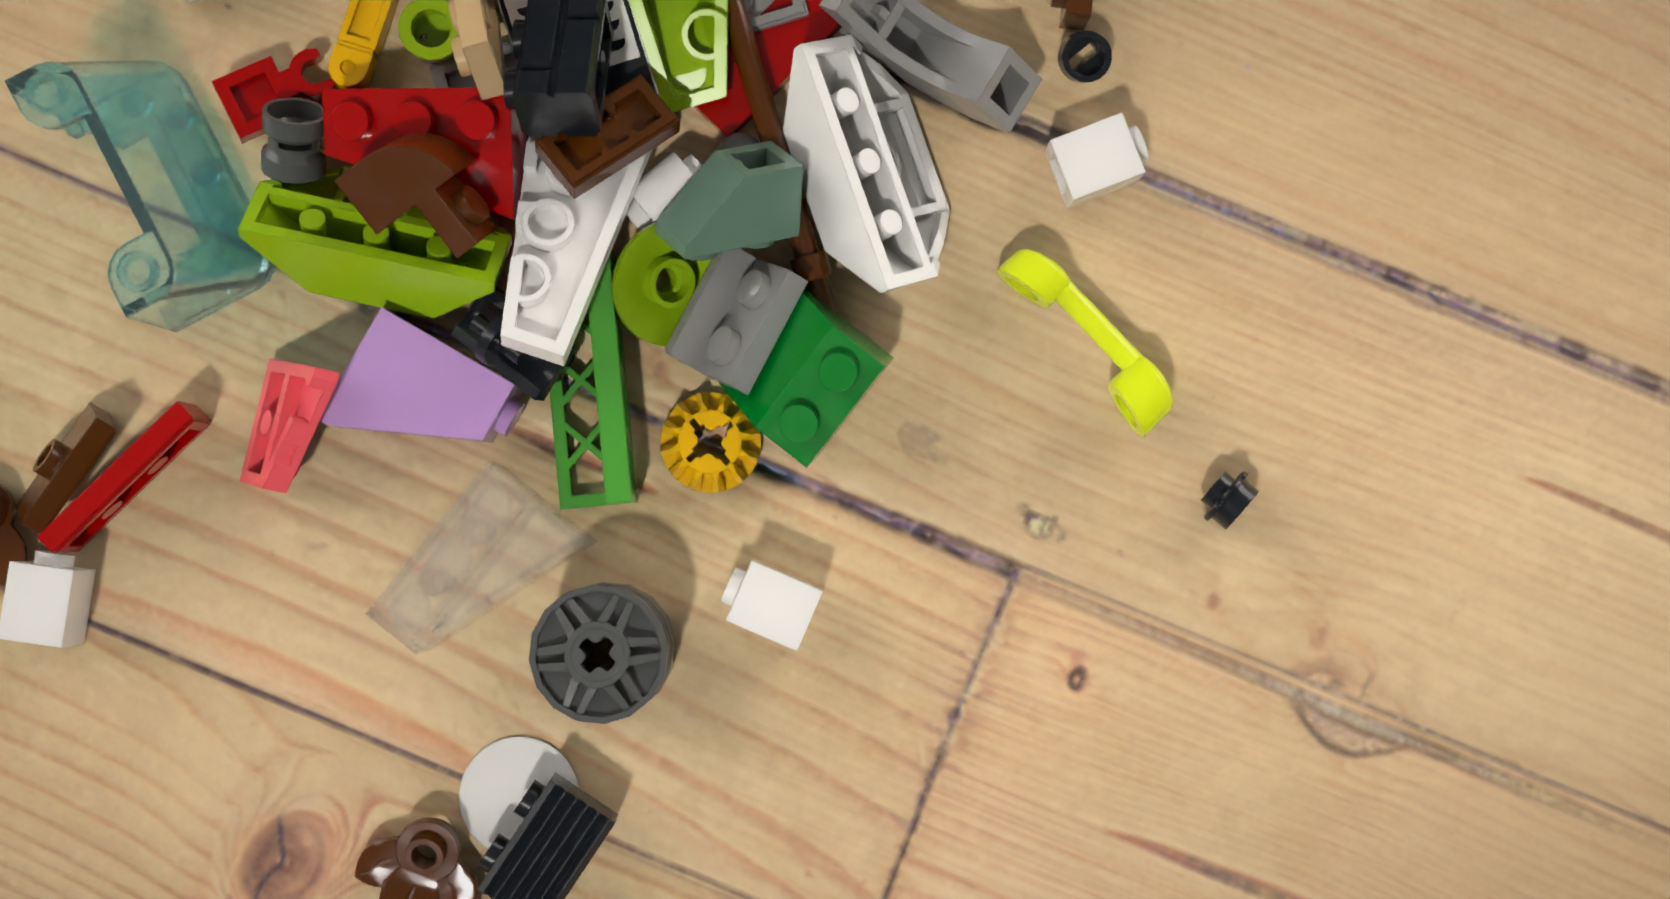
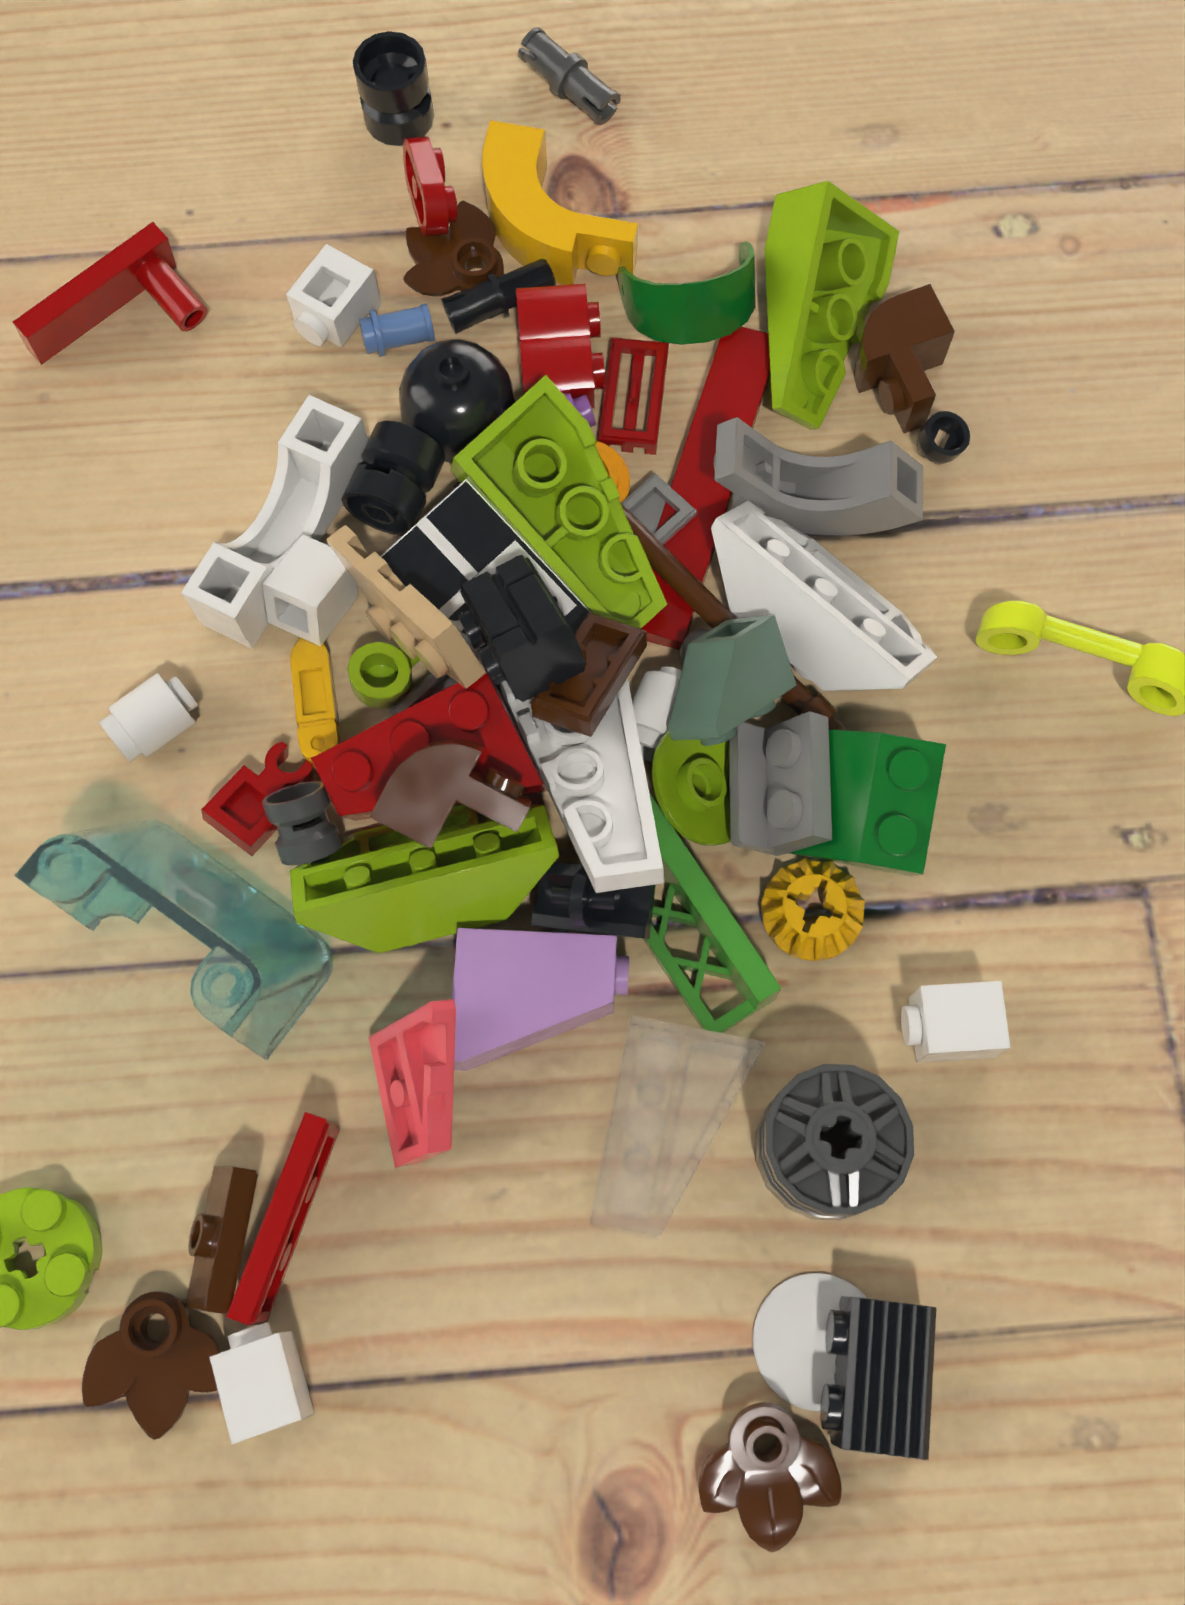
camera: 25 degrees left, 15 degrees down
(1096, 159) = (1003, 511): white brick -> none

